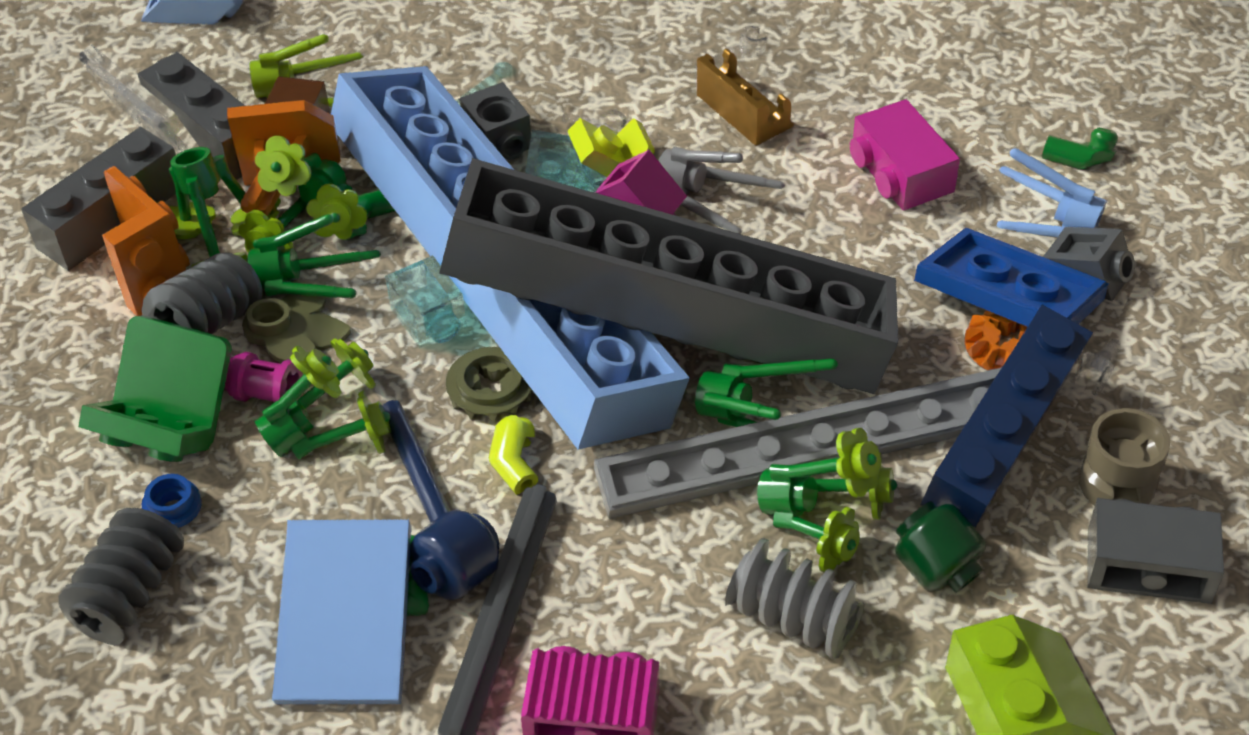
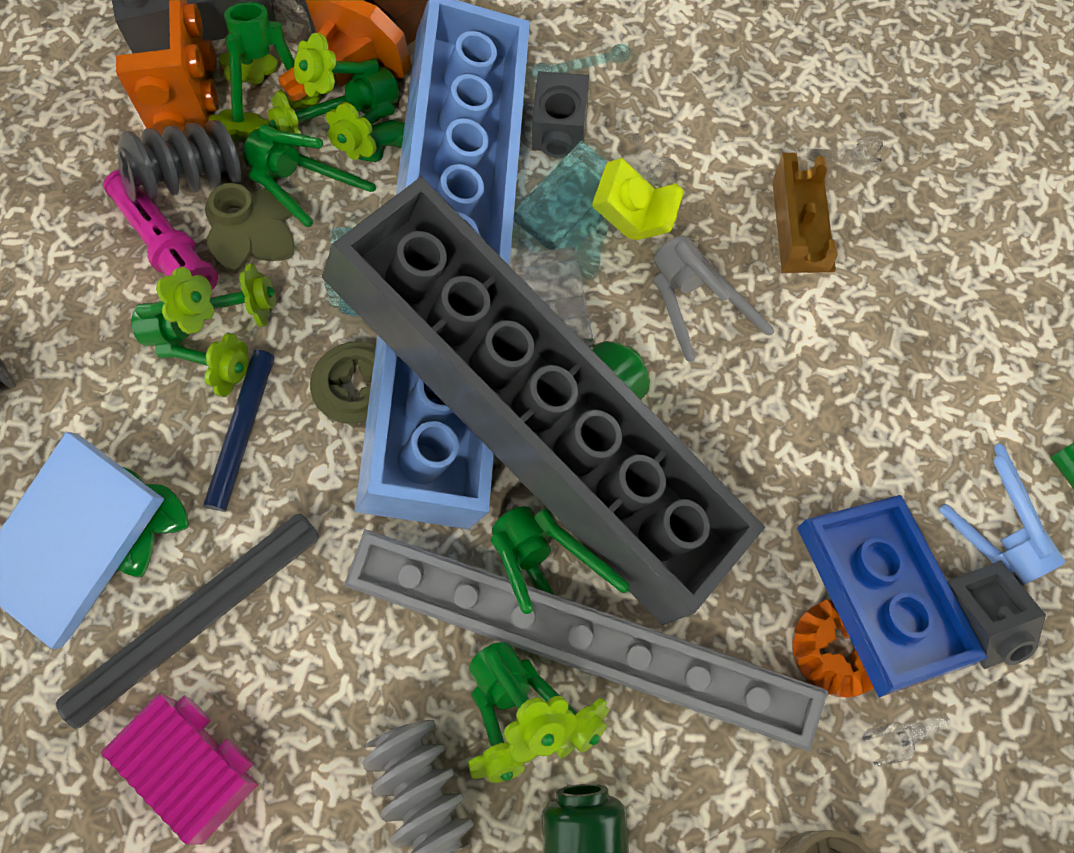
camera: 35 degrees right, 20 degrees up
(164, 391) = (90, 244): green bracket -> none
(169, 488) = (26, 327): blue plate -> none
(454, 554) = (182, 546): dark blue head -> none
(506, 452) = (314, 463): neon yellow arm -> none
(643, 183) = (618, 274): dark pink brick -> none
(904, 155) = (904, 376): dark pink brick -> none
(1008, 415) = (751, 753): dark blue brick -> none

